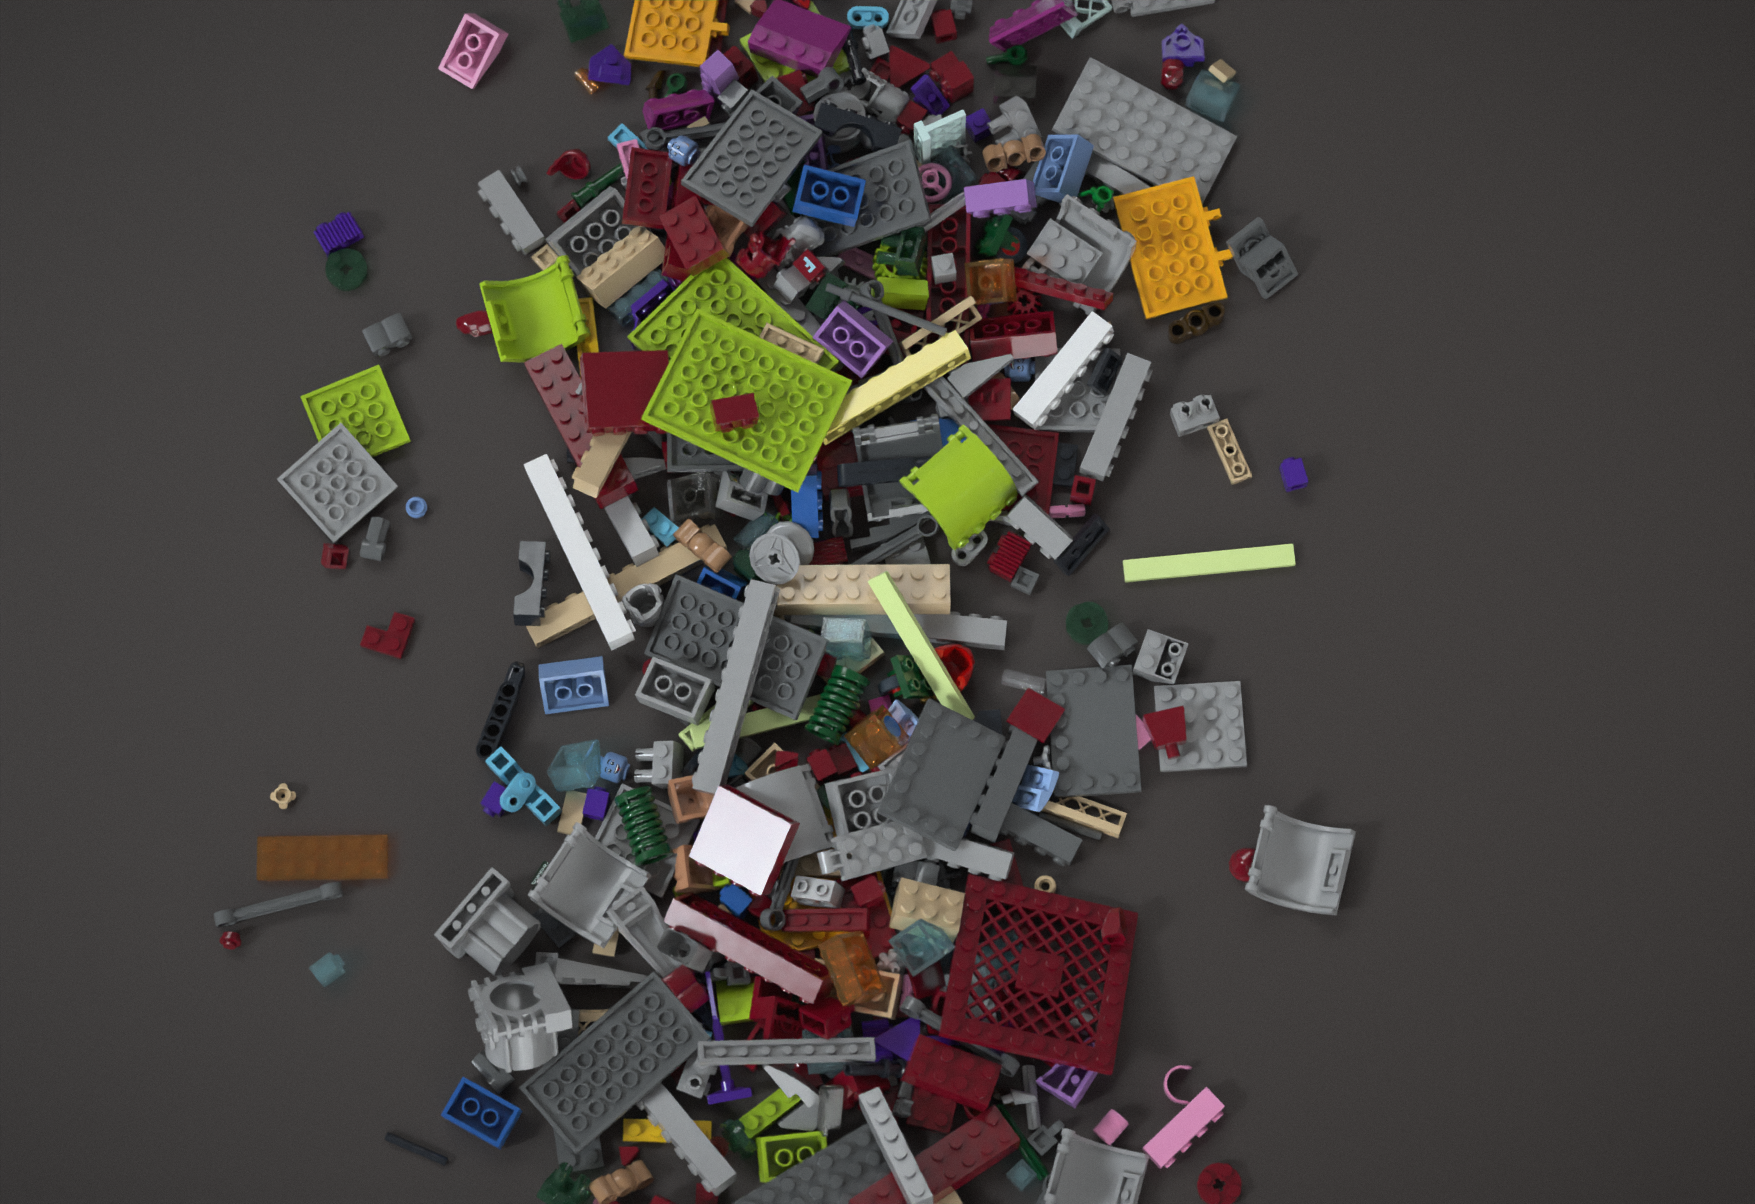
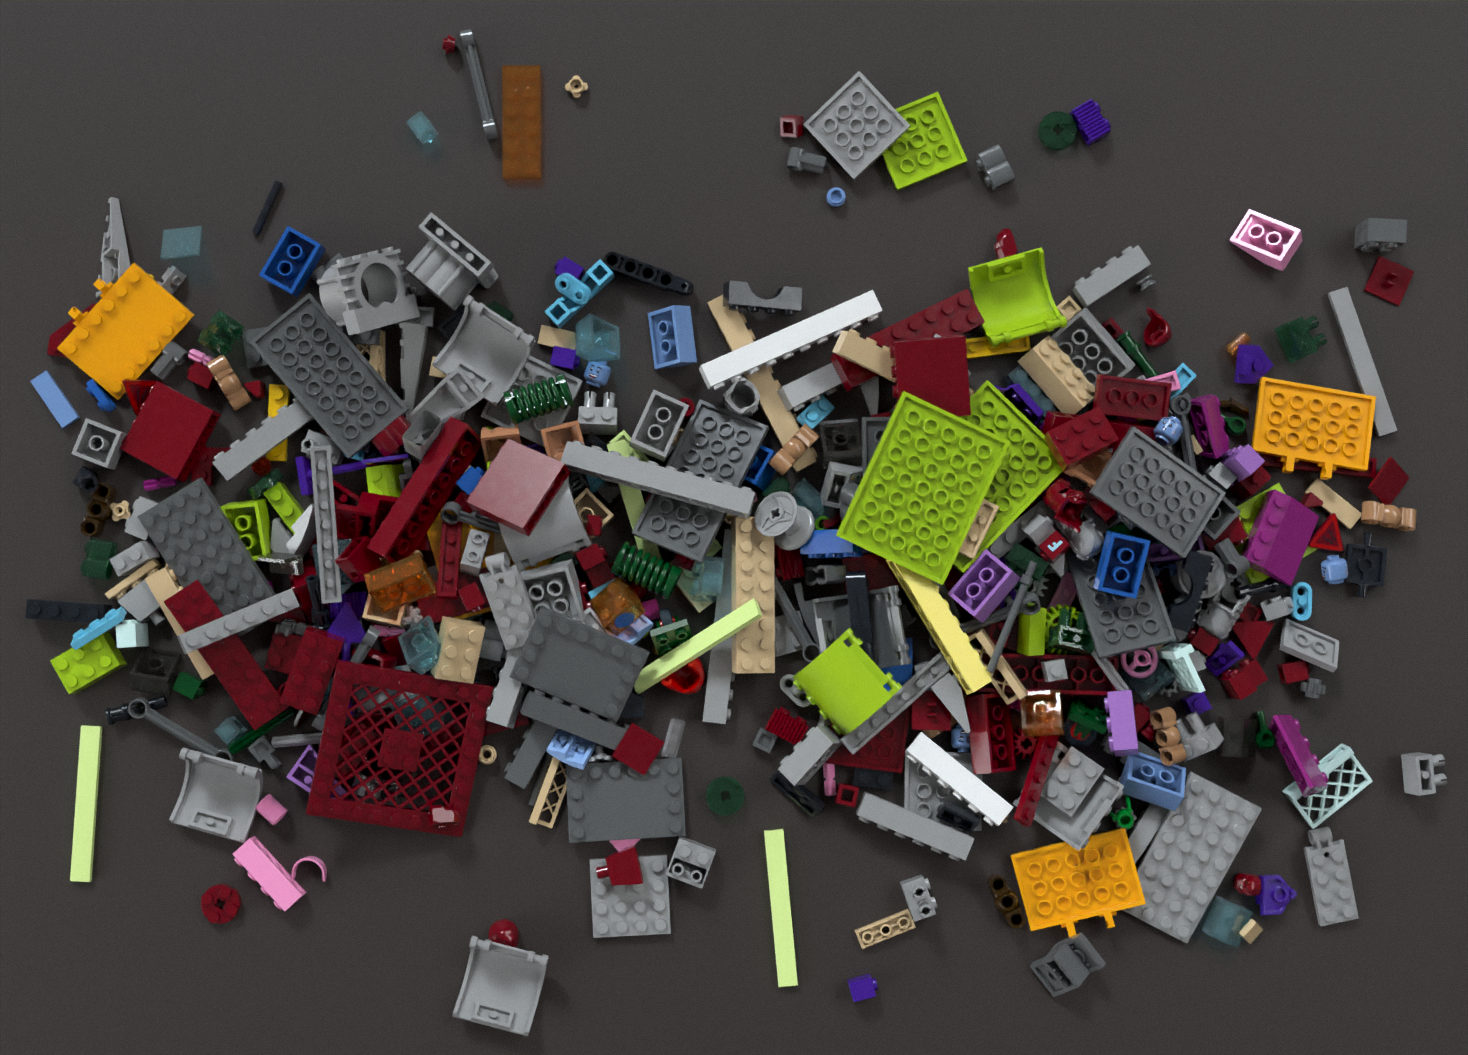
camera: 85 degrees right, 10 degrees up
(391, 641) = (713, 176): dark red plate -> none
(734, 412) = (907, 476): dark red brick -> none
(1018, 1097) = (298, 728): light grey bar -> none
(1113, 645) = (702, 819): dark grey brick -> none

